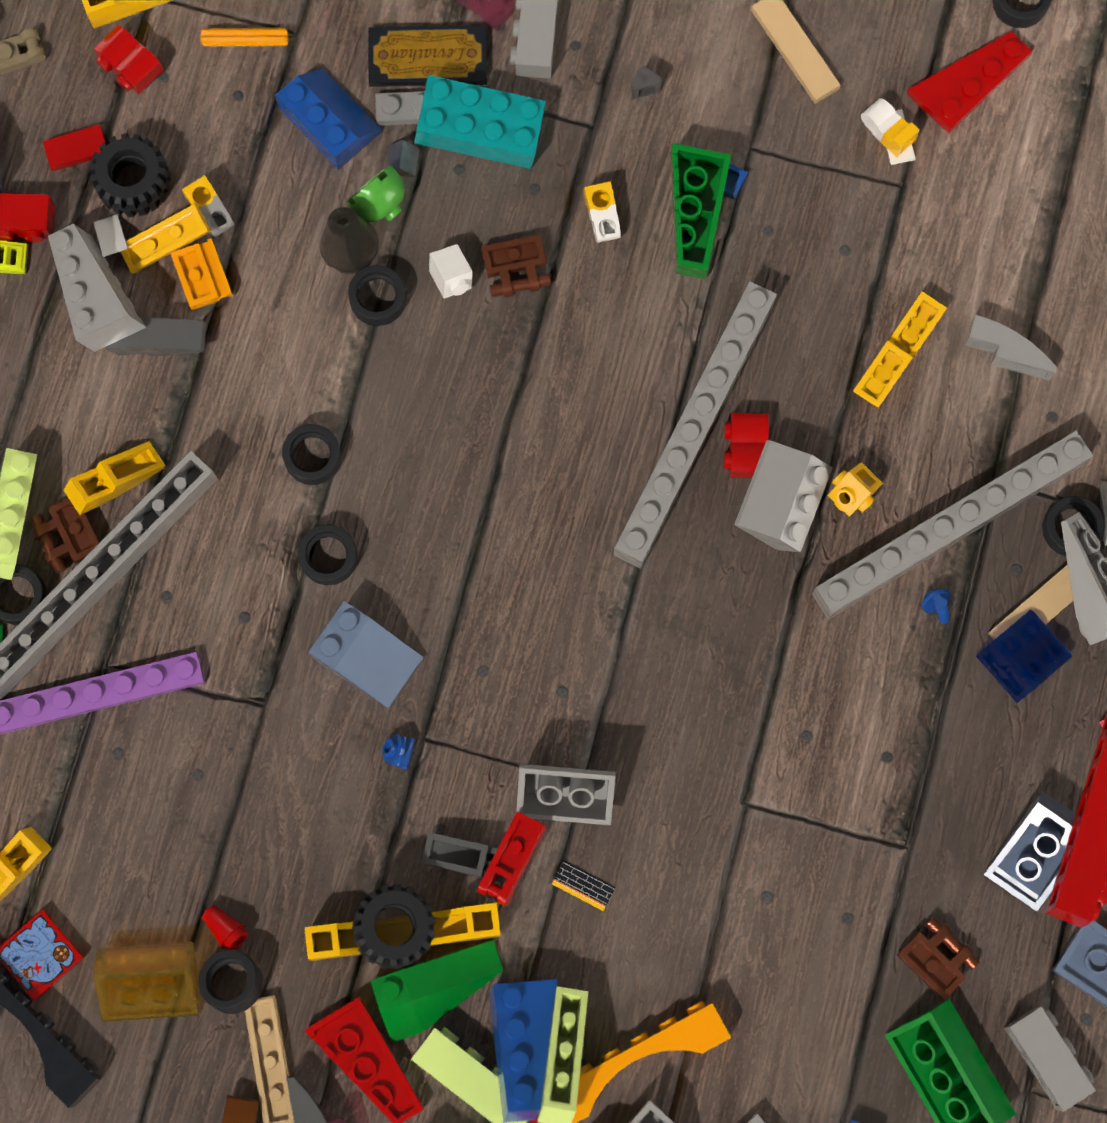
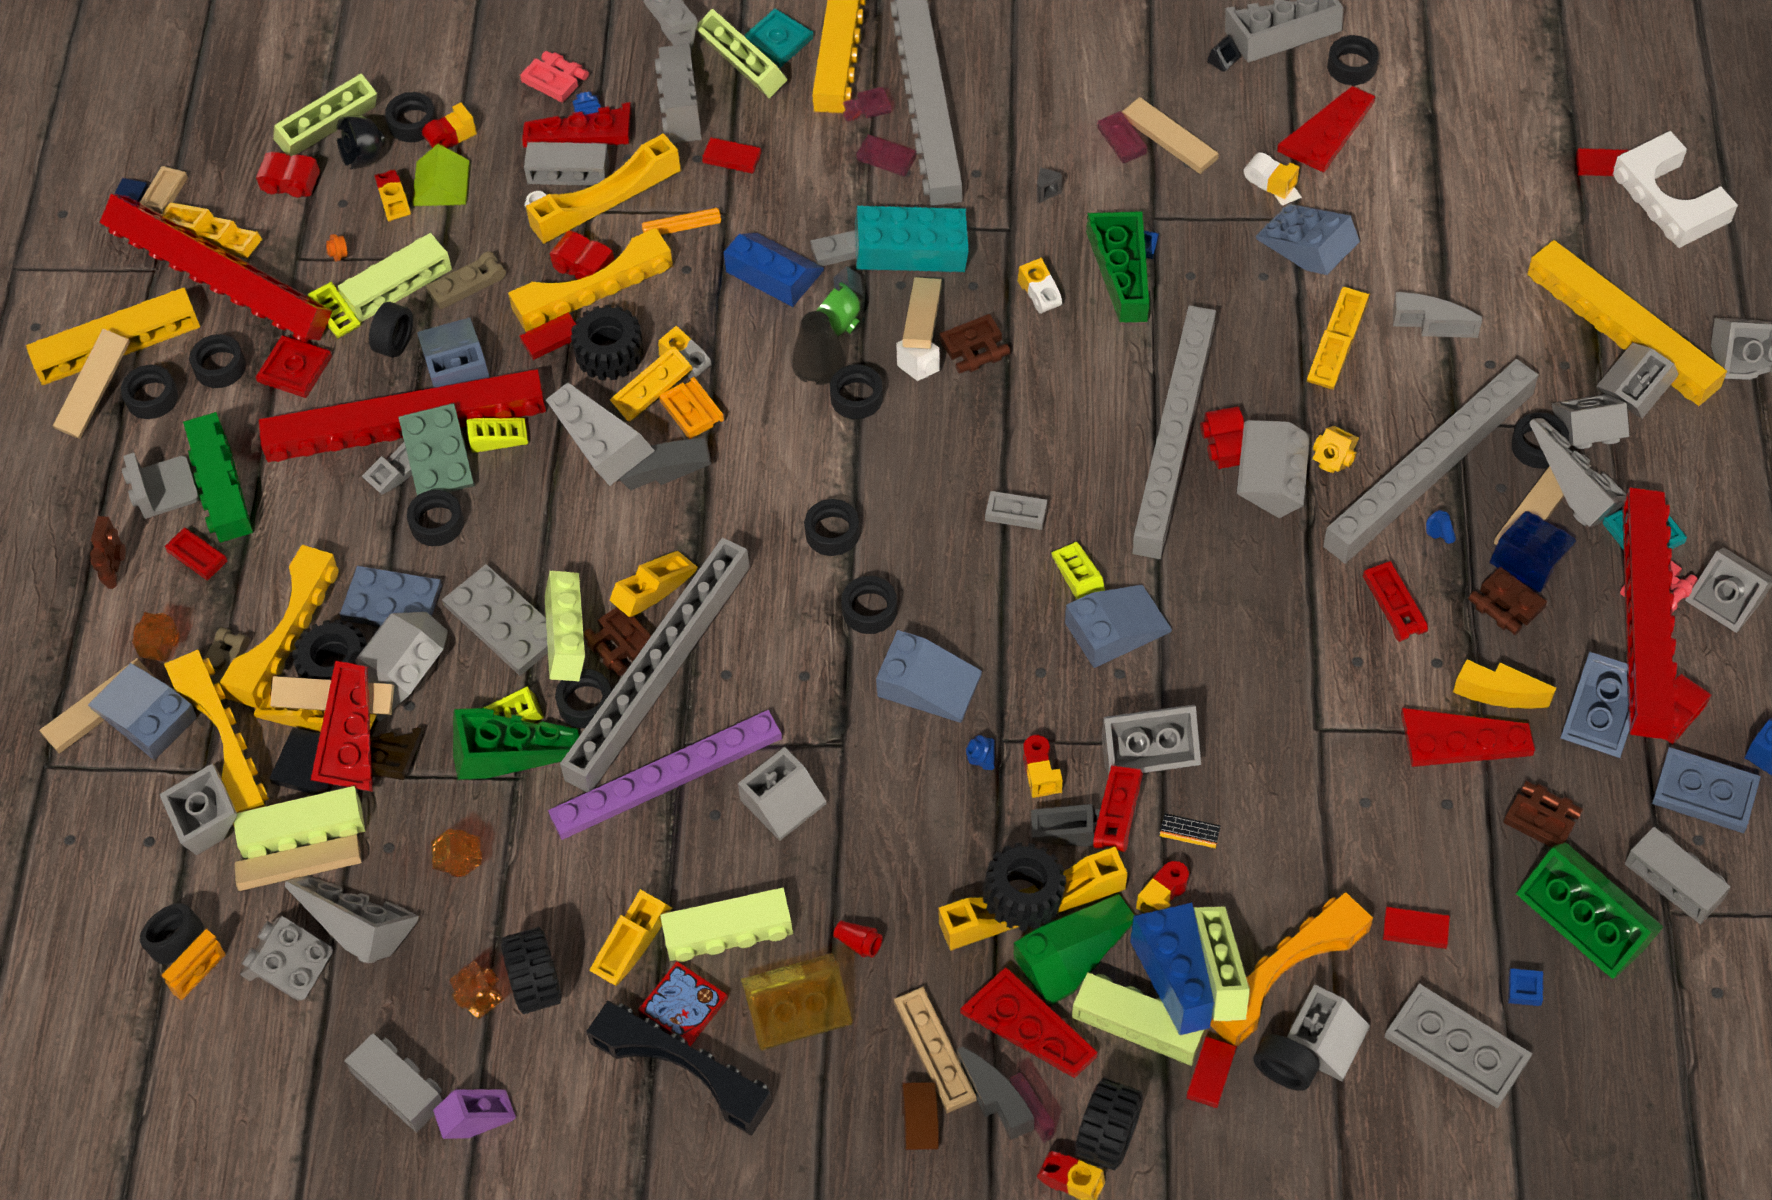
camera: 10 degrees left, 20 degrees down
(98, 883) = (726, 925): none -> yellowish green brick
(110, 235) = (600, 393): white sticker -> none
(185, 755) = (781, 794): none -> light grey slope
(191, 75) = (542, 302): none -> yellow arch
(216, 963) = (871, 961): black tyre -> none
(412, 53) = (835, 205): tile -> none
(450, 771) = (1036, 761): none -> yellow leg
(467, 219) = (922, 313): none -> tan tile
(506, 479) = (1016, 510): none -> light grey plate
(544, 942) = (1164, 886): none -> leg
(557, 583) = (1085, 585): none -> neon yellow slope
(574, 635) = (1114, 622): none -> sand blue slope
(742, 39) = (1122, 137): none -> clear pink plate
(774, 1048) = (1416, 927): none -> red tile
(864, 679) = (1395, 600): none -> red plate
(880, 850) = (1454, 738): none -> red wing
(906, 216) = (1310, 237): none -> sand blue slope
(942, 807) = (1503, 687): none -> yellow slope
(987, 702) = (1512, 596): none -> copper plate

